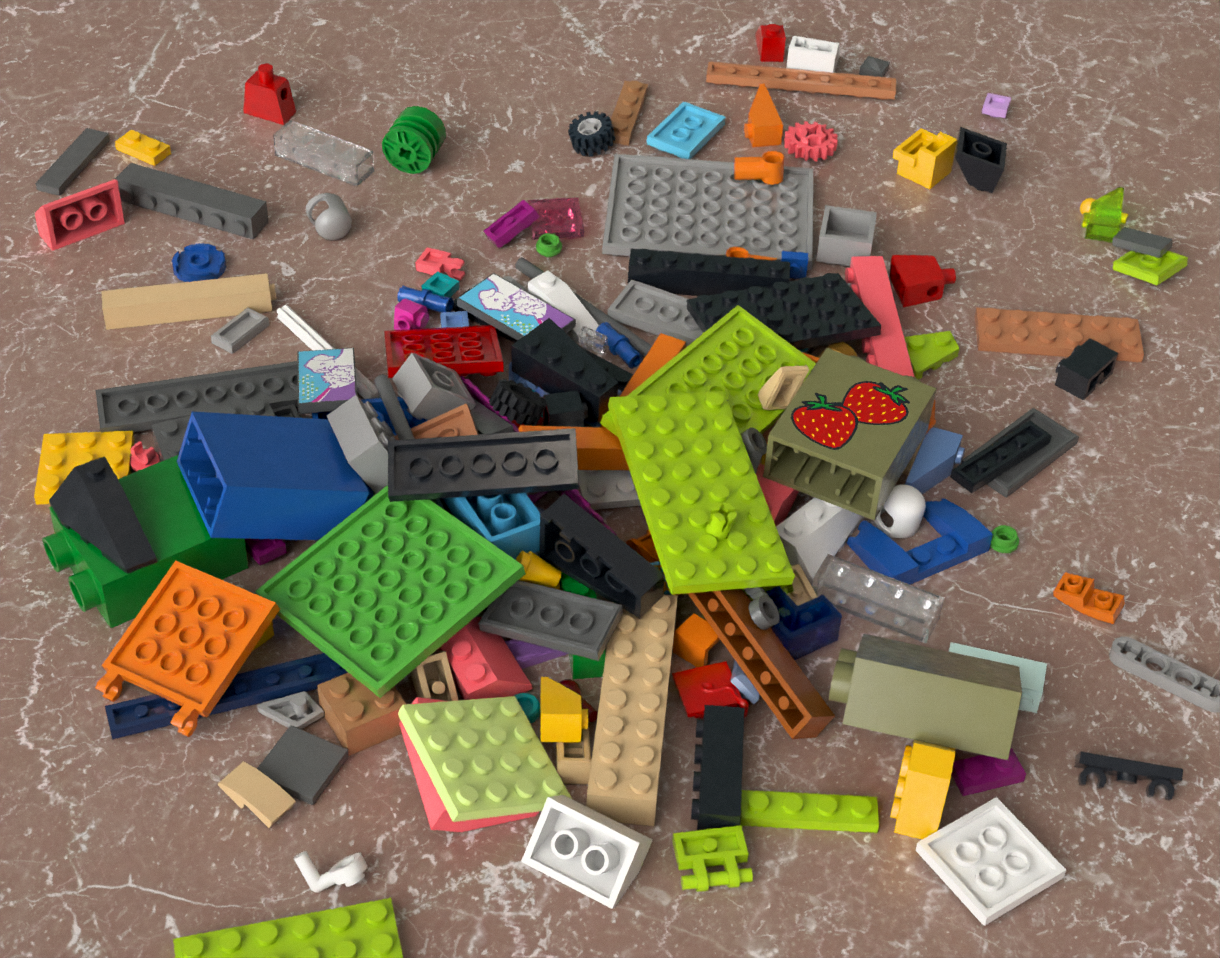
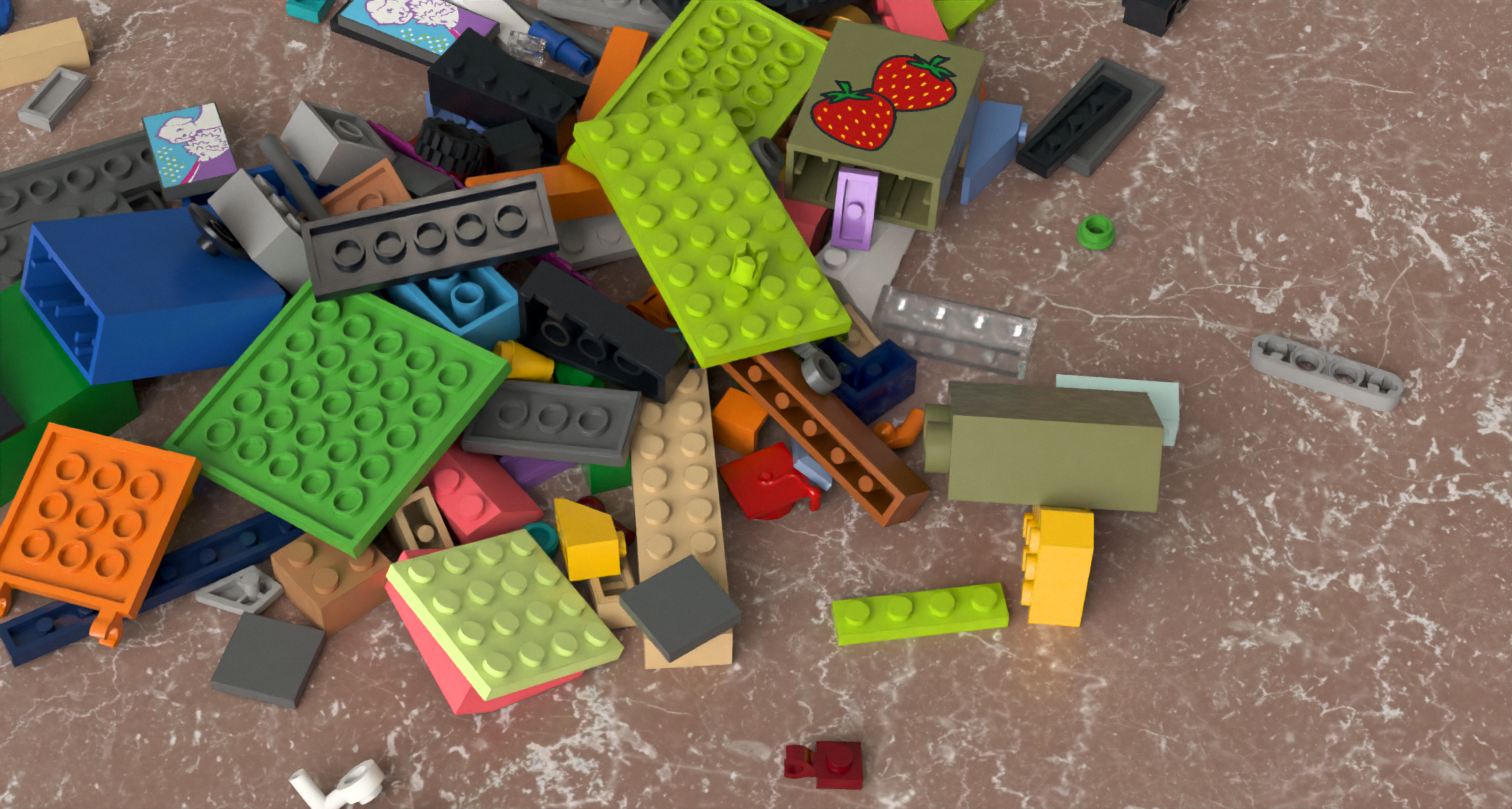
camera: 10 degrees left, 5 degrees up
(258, 792) = (223, 704): tan slope -> none
(265, 549) = (158, 389): magenta plate -> none
(317, 342) = (164, 102): white axle -> none
(325, 440) = (215, 235): none -> black dish
(410, 315) = (279, 49): dark pink plate -> none
(426, 298) = (294, 23): blue pin -> none
(454, 319) = (339, 51): medium blue tile -> none
(458, 348) = (358, 82): red plate -> none
(586, 850) = (655, 708): white slope -> none
(618, 775) = (680, 608): none -> dark grey tile
(712, 848) = (810, 680): lime plate -> none
(717, 917) = (833, 764): none -> dark red plate
(720, 767) = (802, 581): black brick -> none
(782, 387) = (790, 78): tan slope -> none
(814, 492) = (855, 208): none -> medium lavender plate
(819, 672) = (903, 435): none -> orange arm
(906, 508) = (971, 211): white helmet -> none
(961, 540) = (1043, 241): blue wedge -> none
(987, 773) = (1128, 531): magenta plate -> none
(990, 860) = (1151, 638): white plate -> none
(1082, 596) = (1205, 291): orange slope -> none
(1128, 772) = (1297, 503): black plate -> none

